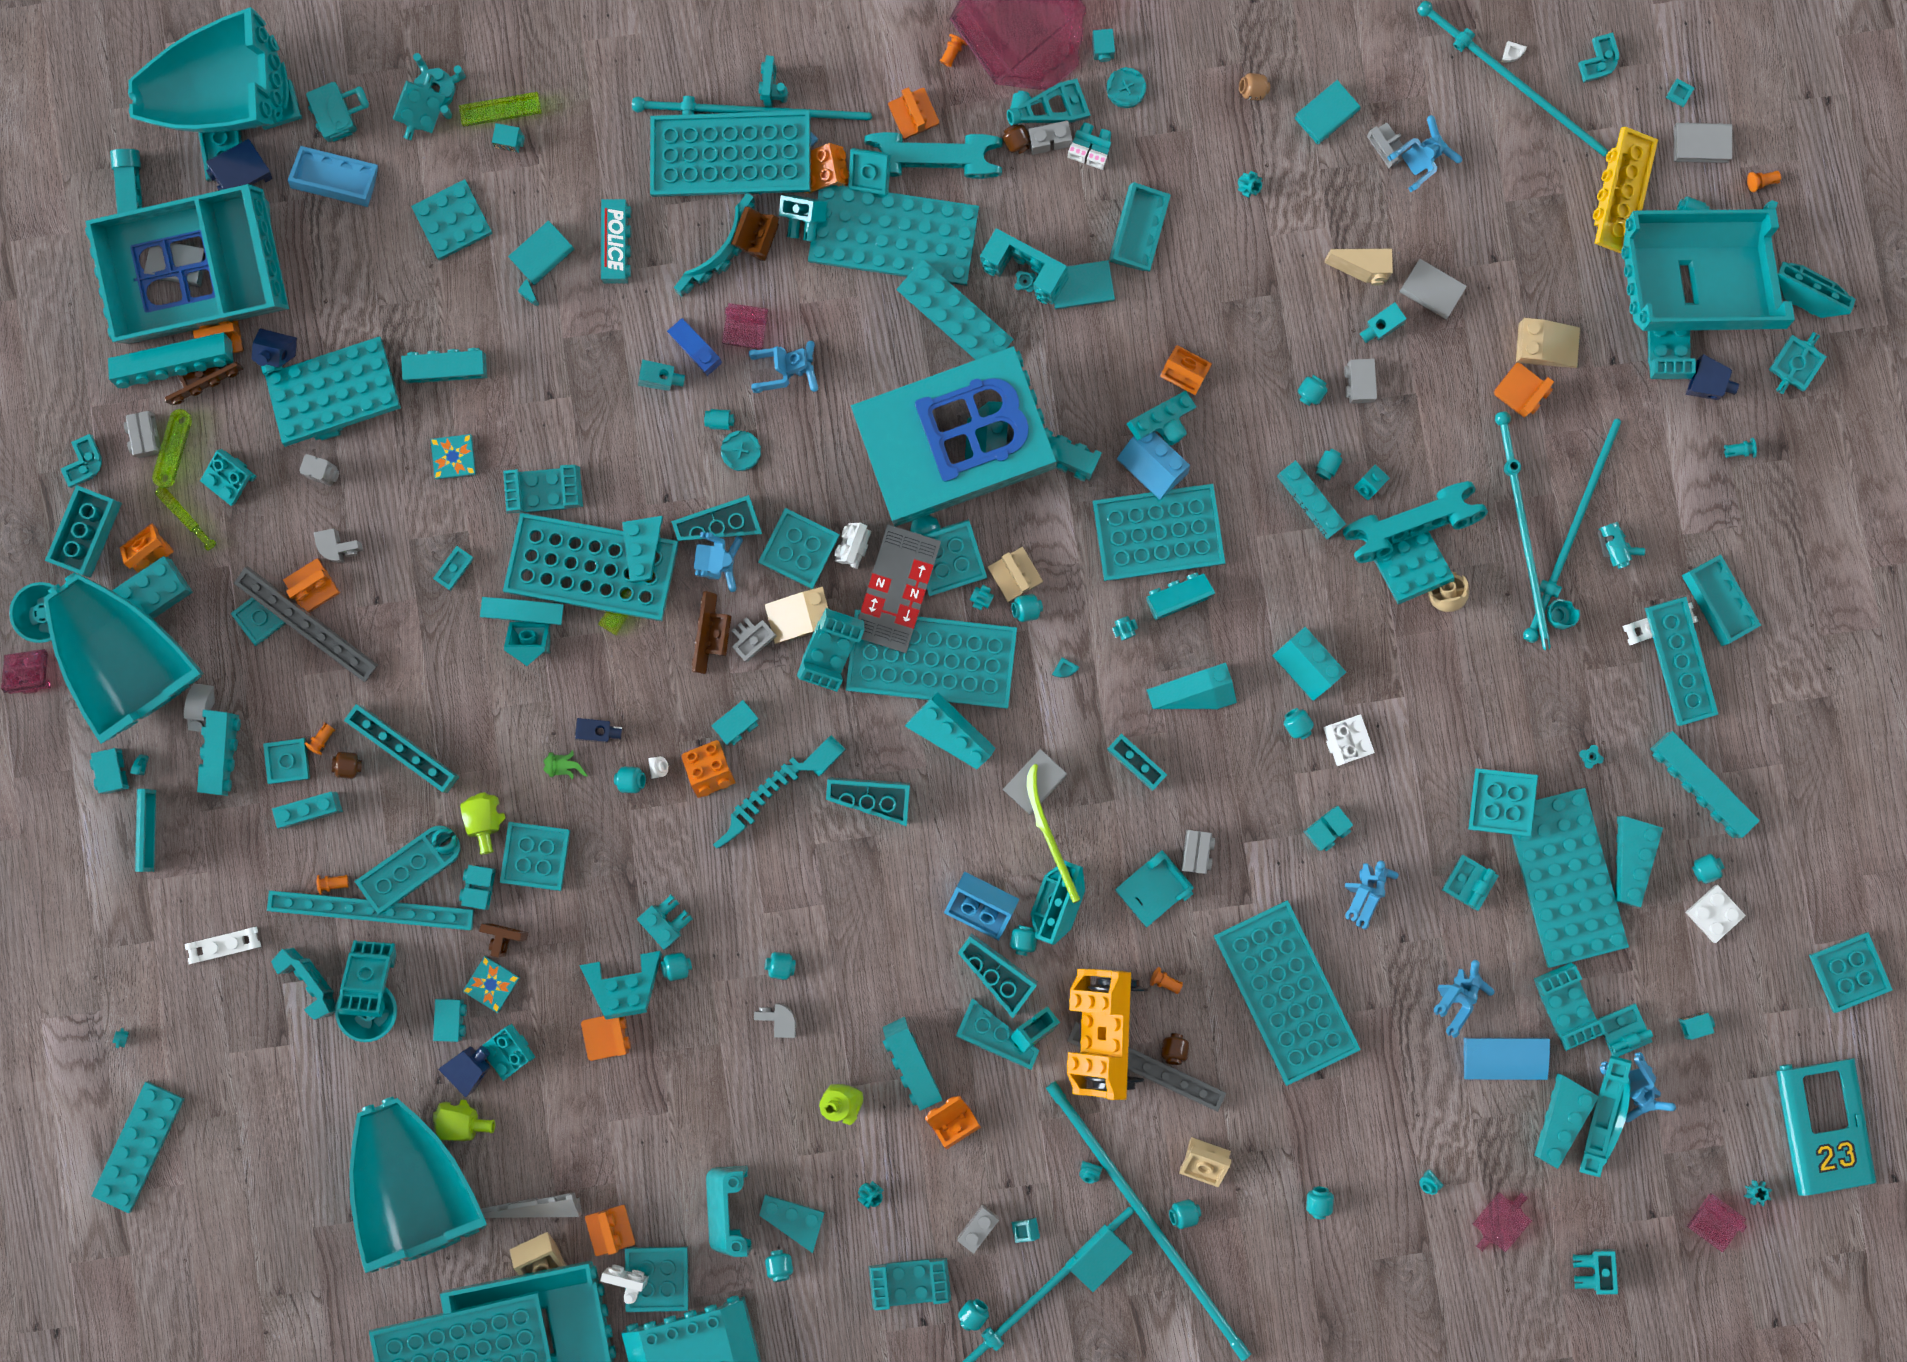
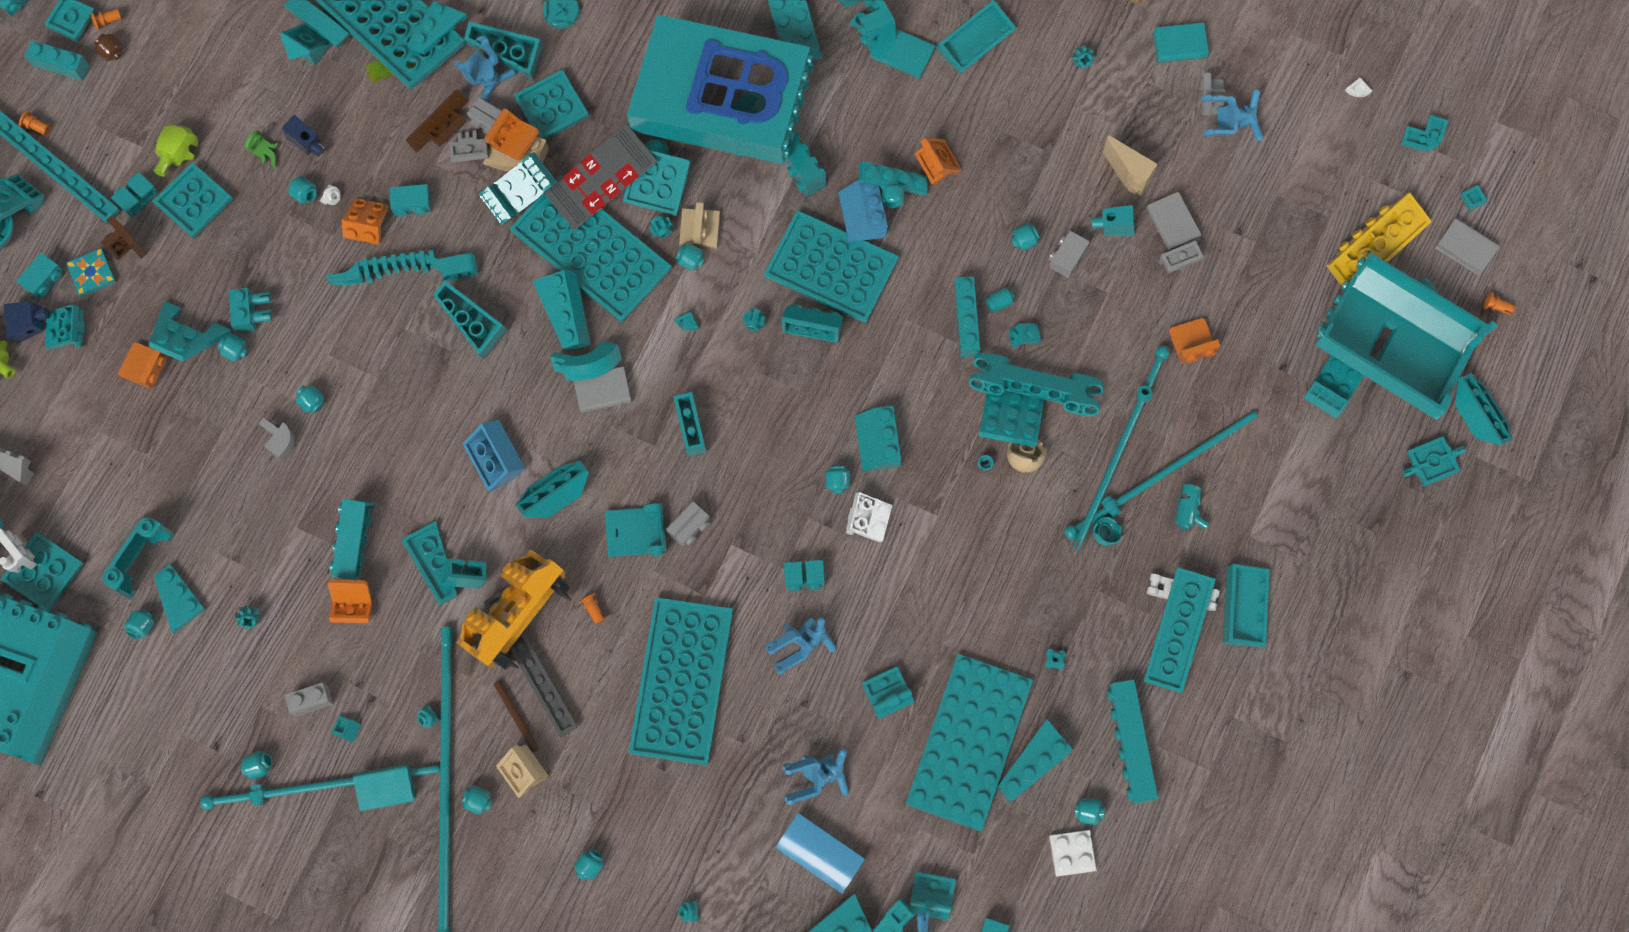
camera: 35 degrees right, 10 degrees down
(401, 748) = (156, 60): teal brick -> none
(409, 868) = (96, 148): teal plate -> none
(610, 1230) = (37, 511): orange bracket -> none
(753, 599) = (483, 115): none -> light grey brick
(791, 604) = (511, 135): none -> orange bracket
(841, 1103) = (276, 529): lime piece -> none
(853, 544) = (591, 126): white plate -> none
(909, 1283) = (226, 706): teal plate -> none
(998, 974) = (468, 519): teal wedge -> none
(1010, 771) = (587, 366): none -> teal arch
(1023, 940) = (505, 503): teal head -> none
(1041, 823) = (582, 423): lime piece -> none
(1165, 1119) = (516, 716): none -> reddish brown piece
(1175, 1049) = (561, 665): reddish brown head -> none
(1200, 690) = (778, 403): teal wedge -> none
(1419, 623) = (987, 466): none -> teal hinge
(1464, 40) = (1325, 56): teal bar -> none
(1464, 319) = (1181, 257): none -> light grey panel
(1503, 802) = (957, 645): teal plate -> none
(1547, 343) = (1238, 319): tan slope -> none
(1568, 1006) = (899, 846): teal plate -> none
(1711, 380) = (1352, 429): dark blue torso -> none
(1744, 448) = (1344, 500): teal pin -> none

